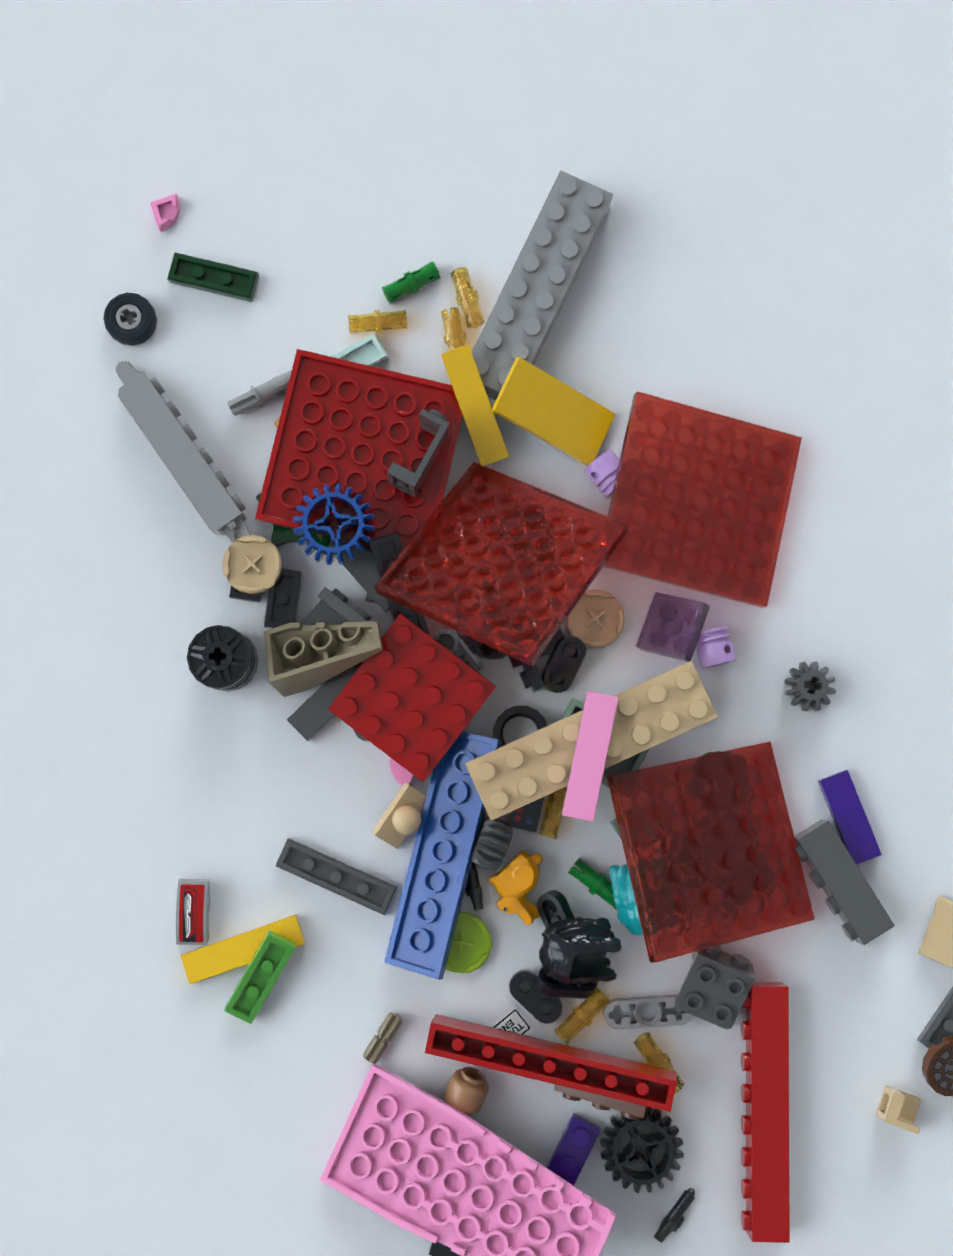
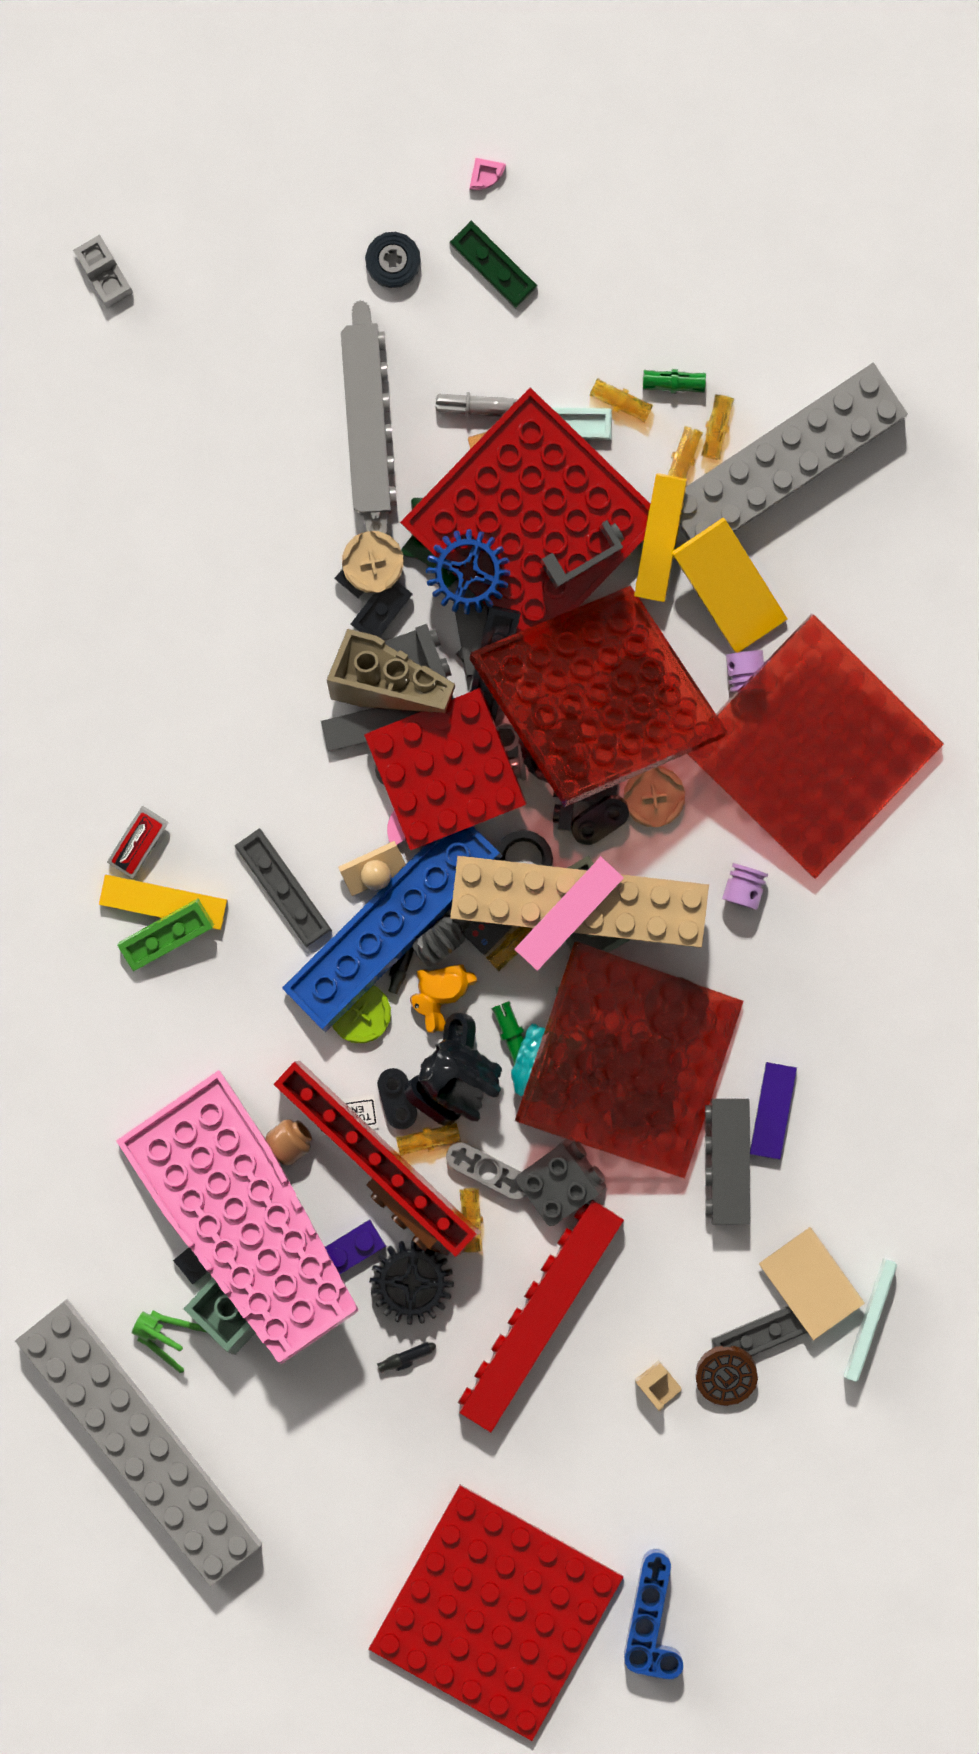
camera: 30 degrees right, 5 degrees up
(234, 670) = (300, 650): black wheel -> none
(380, 1042) = (236, 1055): dark tan piece -> none
(673, 626) = (717, 845): clear purple plate -> none
(814, 697) = (809, 983): dark grey gear -> none

